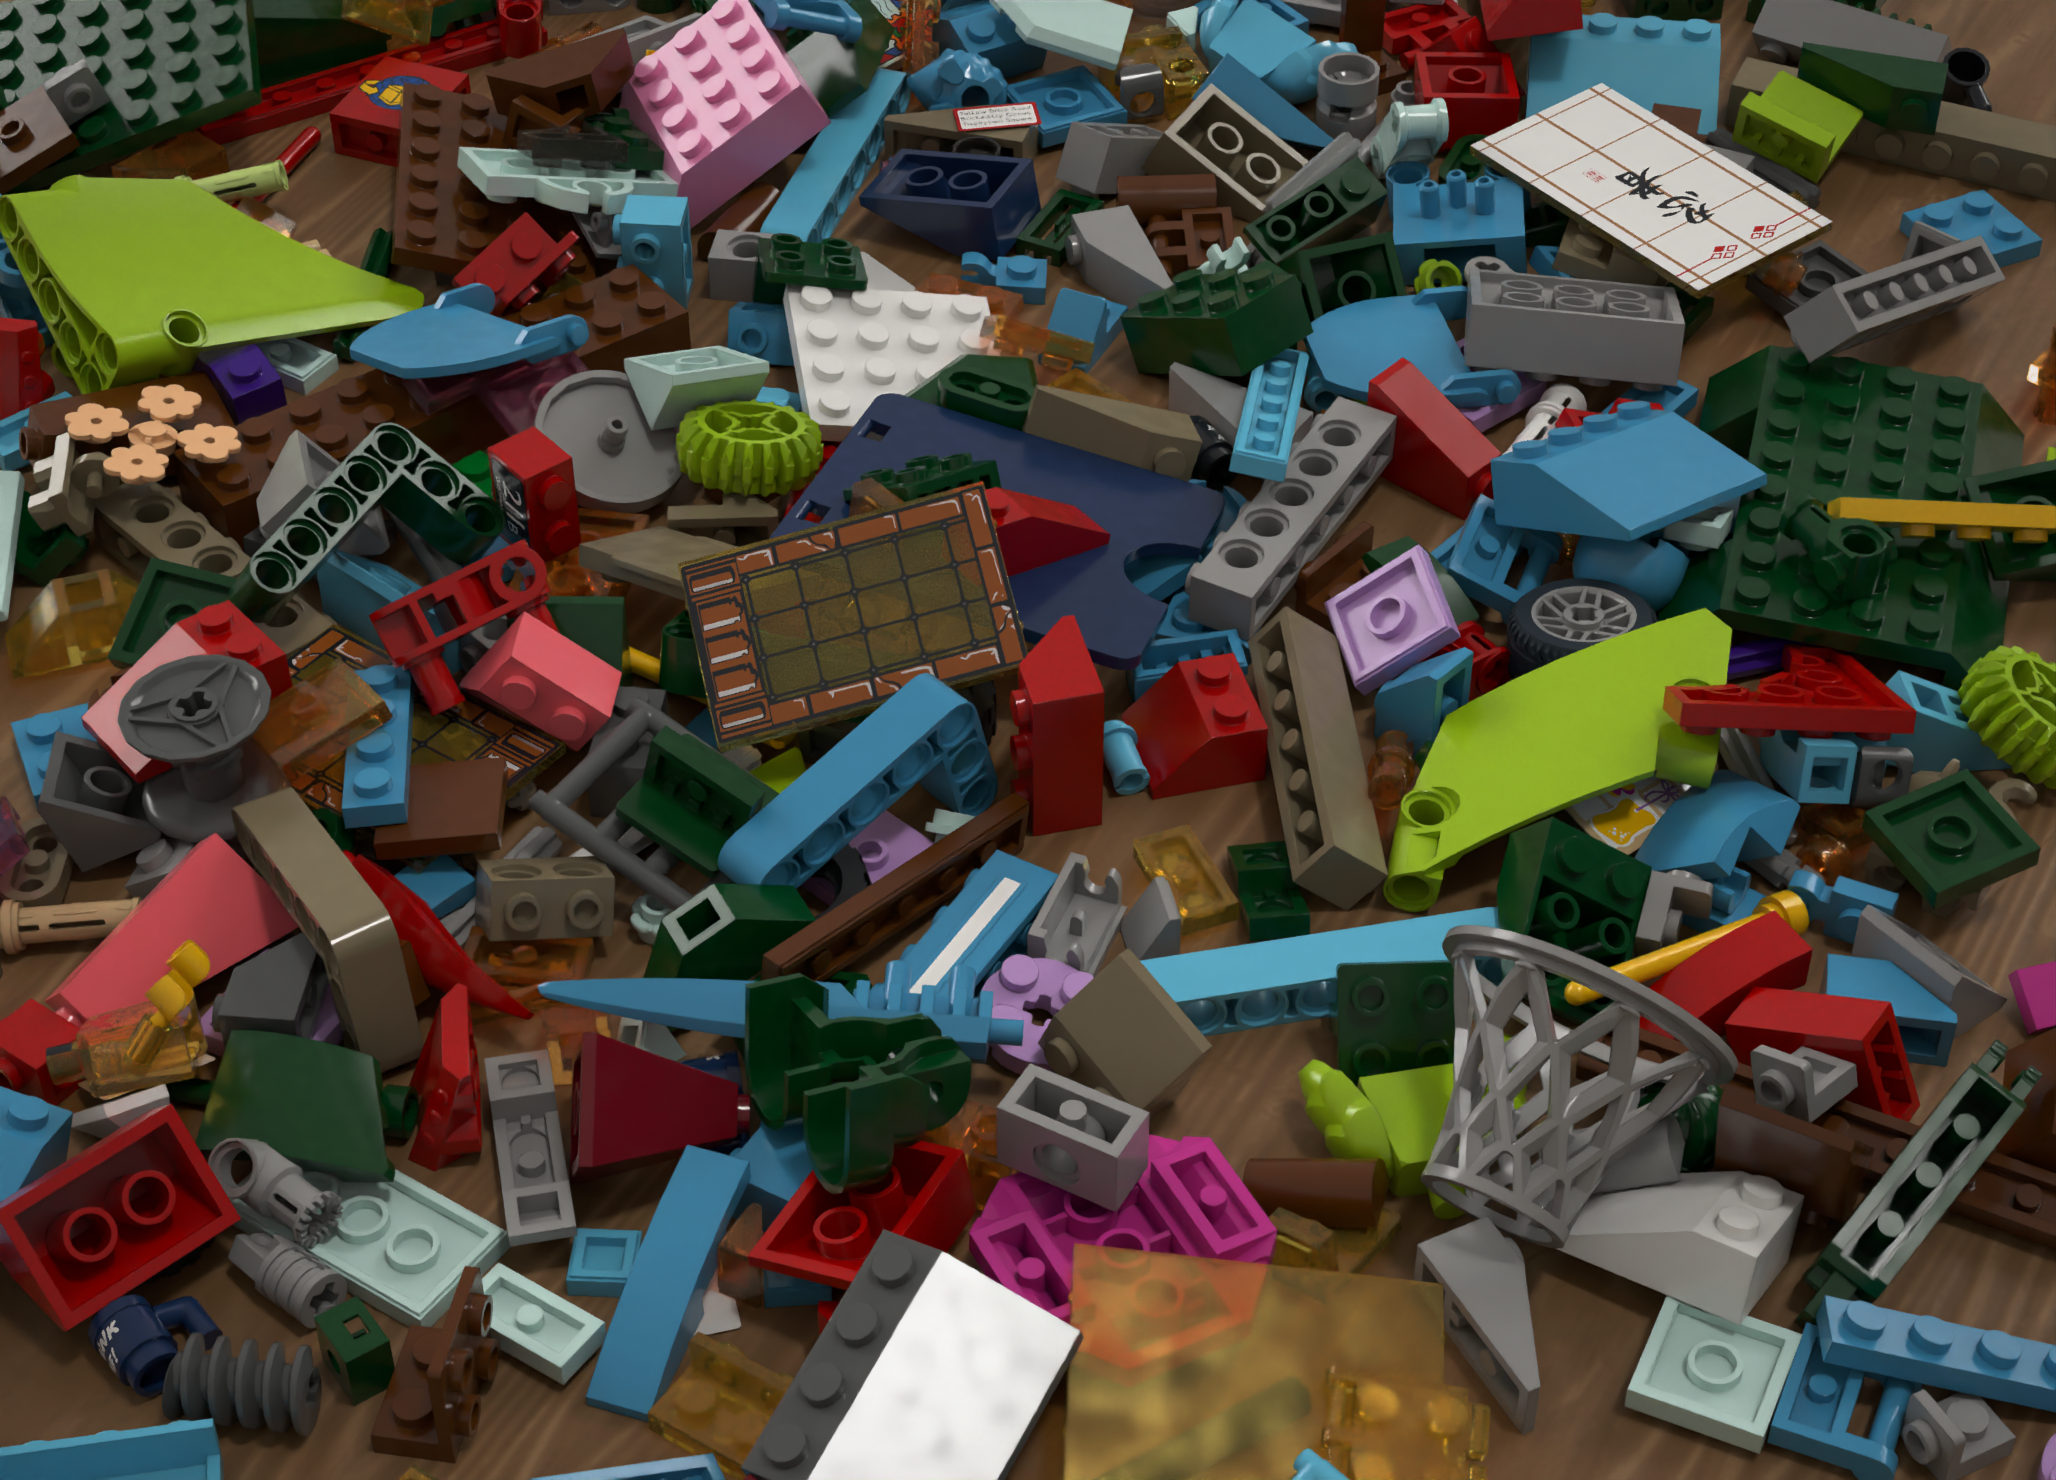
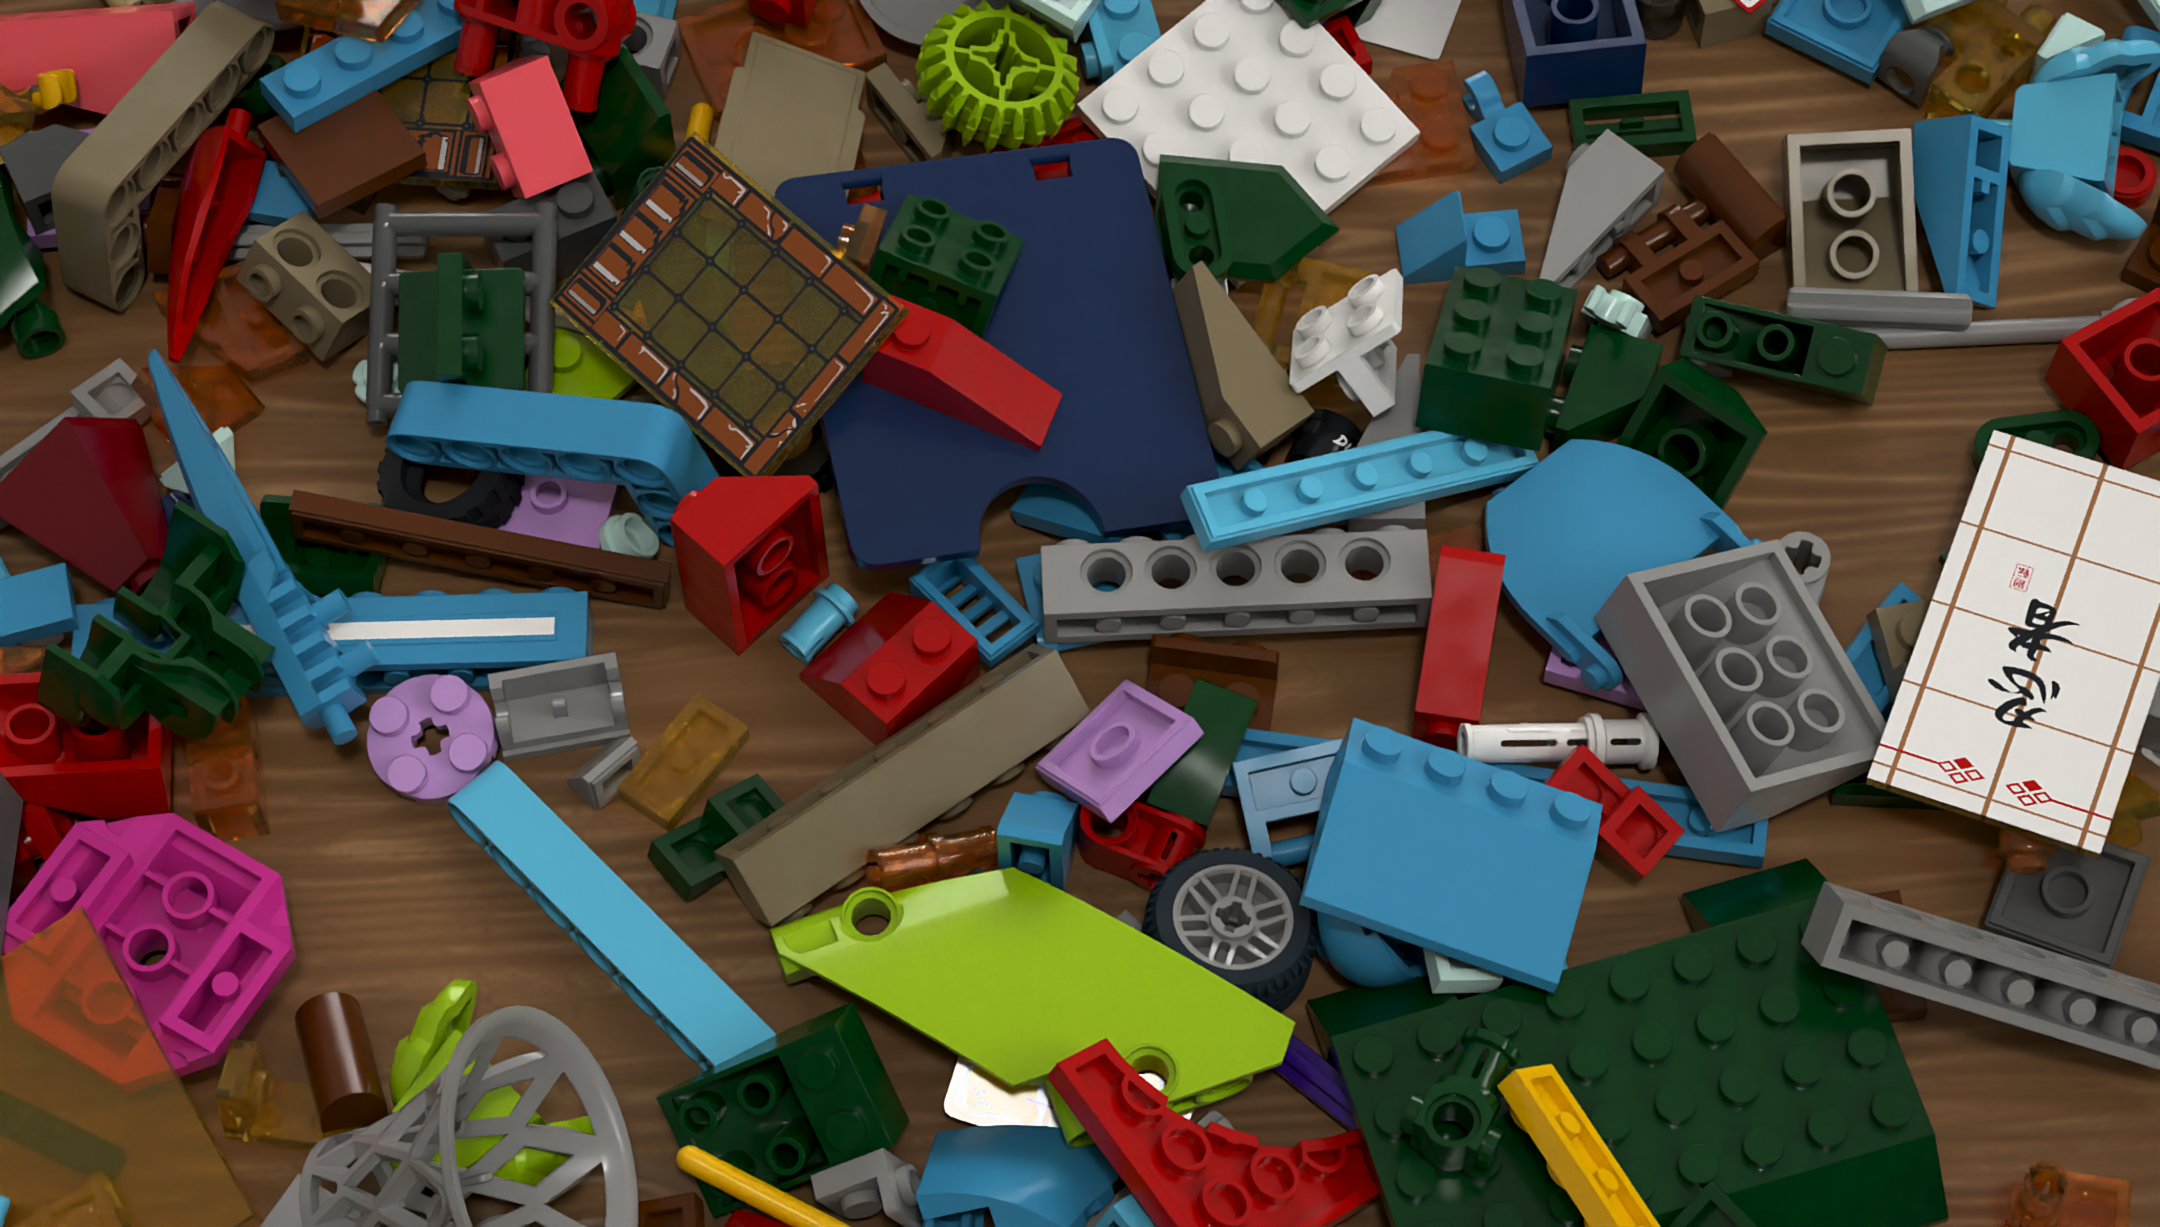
camera: 60 degrees right, 20 degrees up
(448, 1086) = (65, 352): red slope -> none
(726, 932) = (333, 452): dark green slope -> none
(1015, 336) = (1363, 215): clear orange plate -> none
(1072, 1137) = (203, 841): light grey brick -> none
(1101, 152) = (1764, 98): light grey slope -> none
(1125, 1038) = (388, 824): dark tan slope -> none
(1151, 361) = (1353, 342): none -> white bracket
(1347, 94) = (2058, 262): light grey wheel -> none
(1393, 1016) = (598, 1014): dark green bracket -> none
(1409, 135) = (1979, 364): light aqua piece -> none
(1443, 270) = (1787, 502): lime plate -> none
(1455, 218) = (1880, 486): dark azure piece -> none

